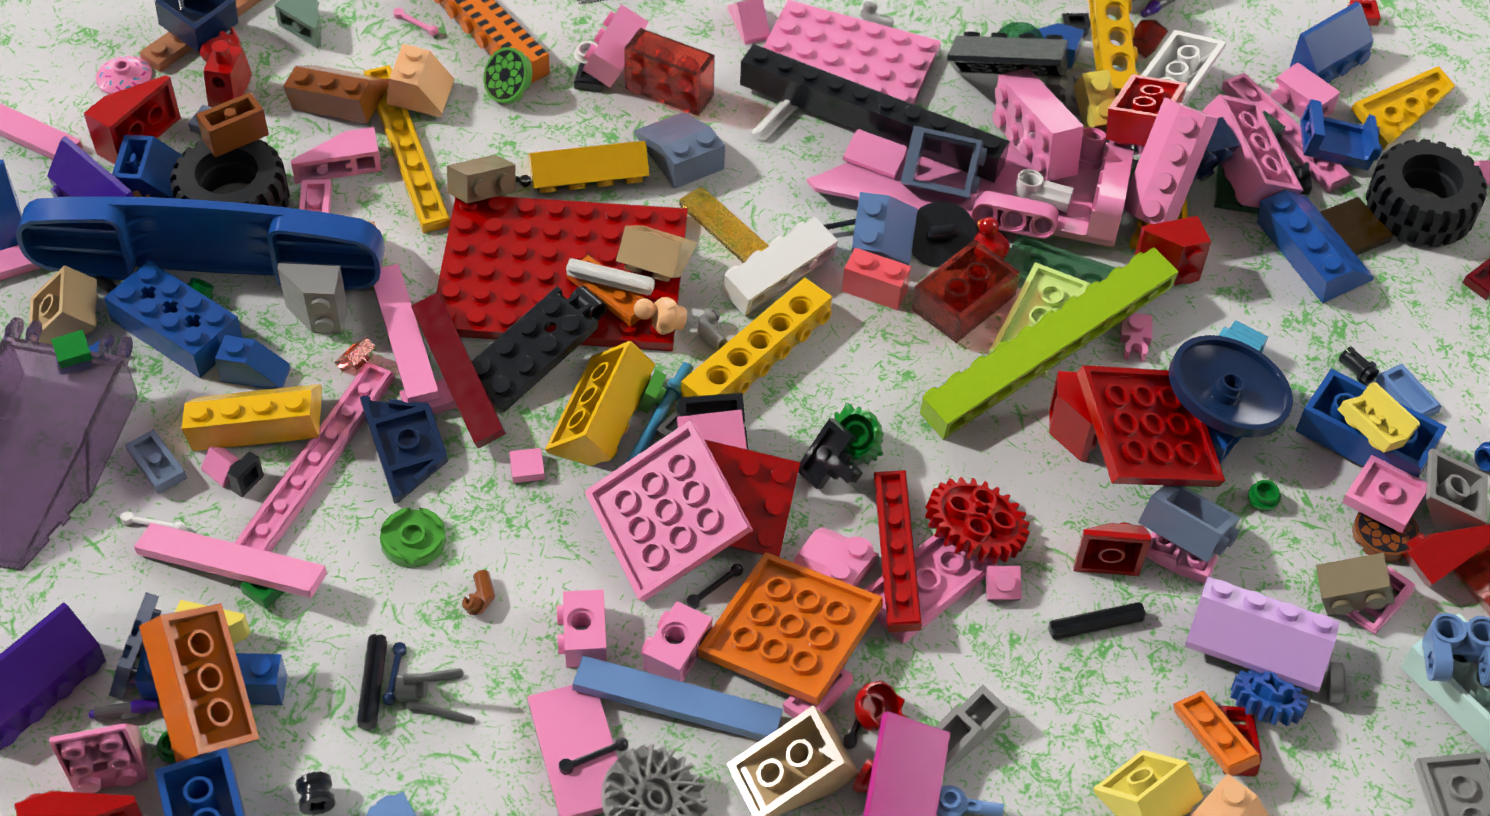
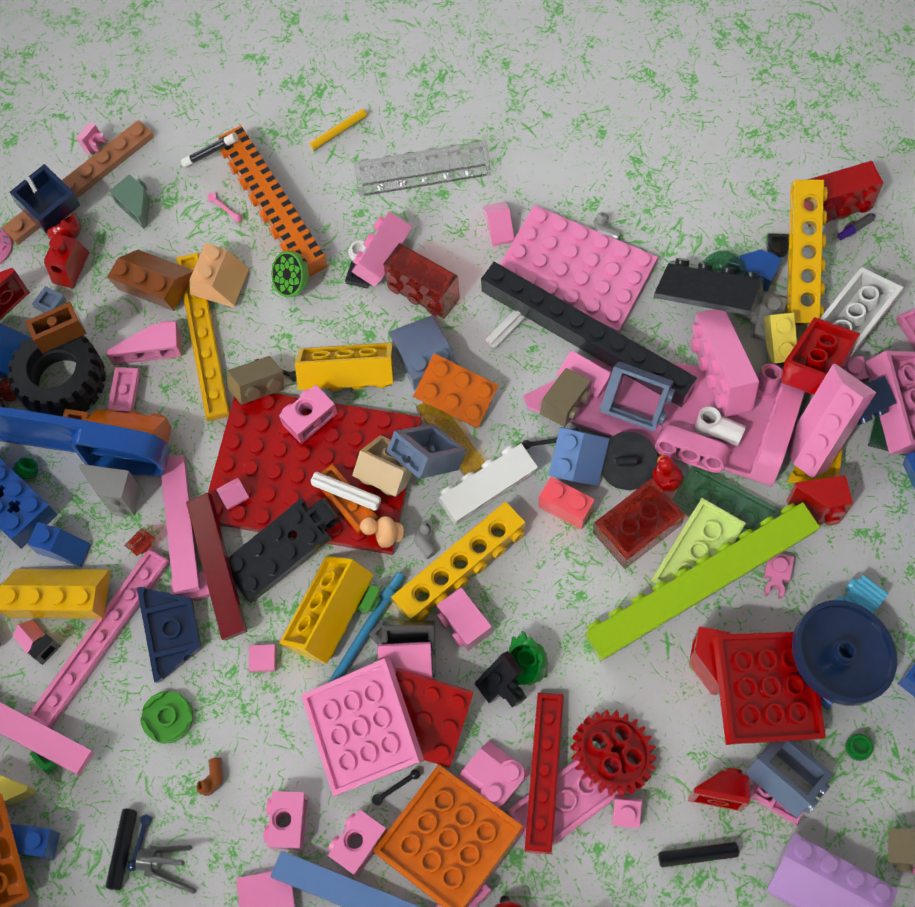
camera: 15 degrees right, 15 degrees up
(469, 294) = (232, 493): none -> bright pink slope
(552, 206) = (305, 426): none -> bright pink brick
(702, 229) = (409, 442): none -> sand blue window
(726, 174) = (455, 390): none -> orange plate
(773, 403) = (464, 619): none -> bright pink brick
(858, 172) = (565, 397): none -> dark tan brick
(1148, 36) = (838, 264): clear red piece -> none

